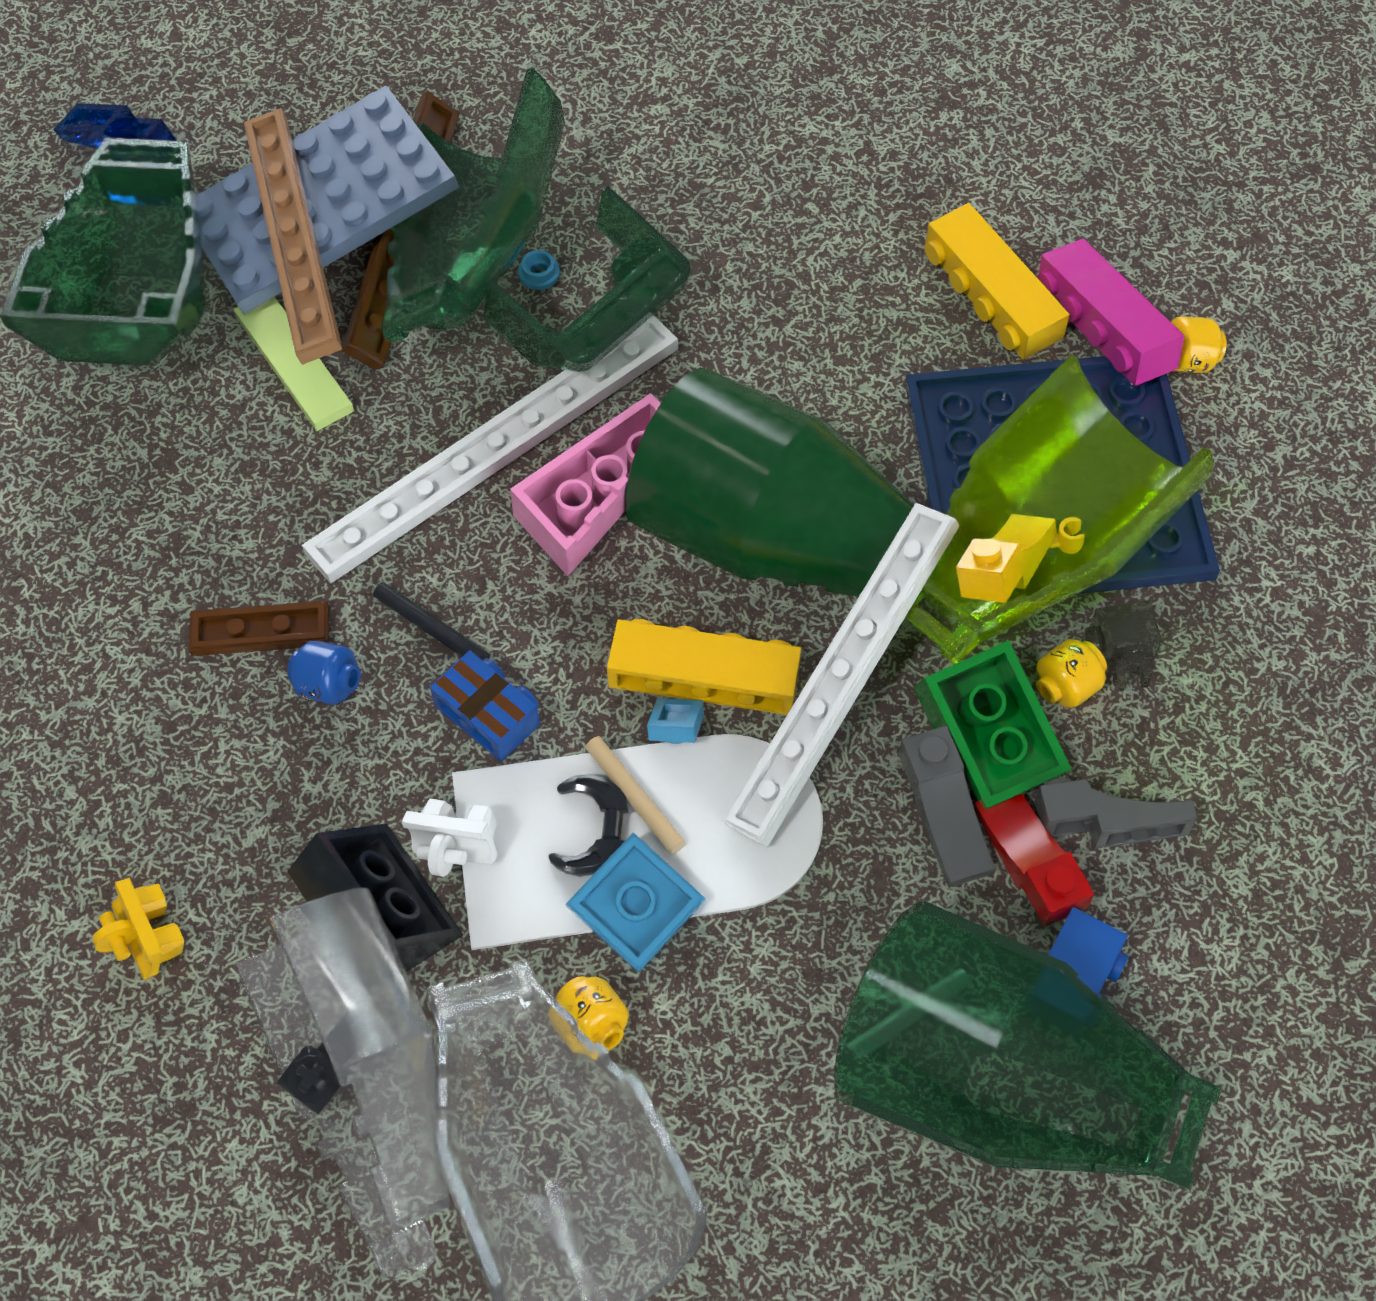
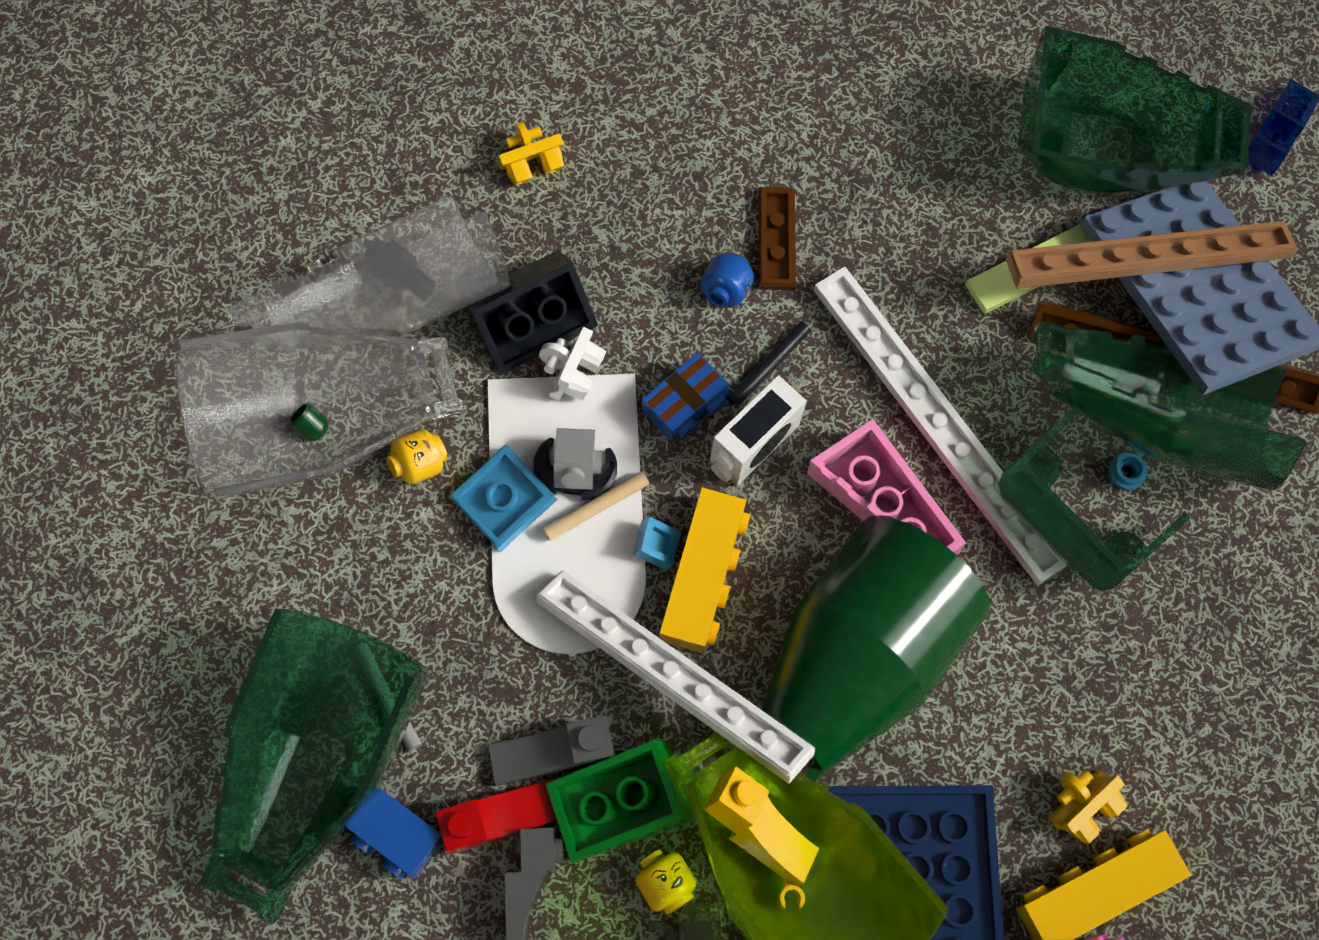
camera: 90 degrees right, 10 degrees up
(531, 613) = (756, 431): none -> white brick
(553, 1164) = (309, 422): none -> dark green piece
(582, 813) = (575, 459): none -> light grey brick
(908, 297) = (1082, 799): none -> yellow hips

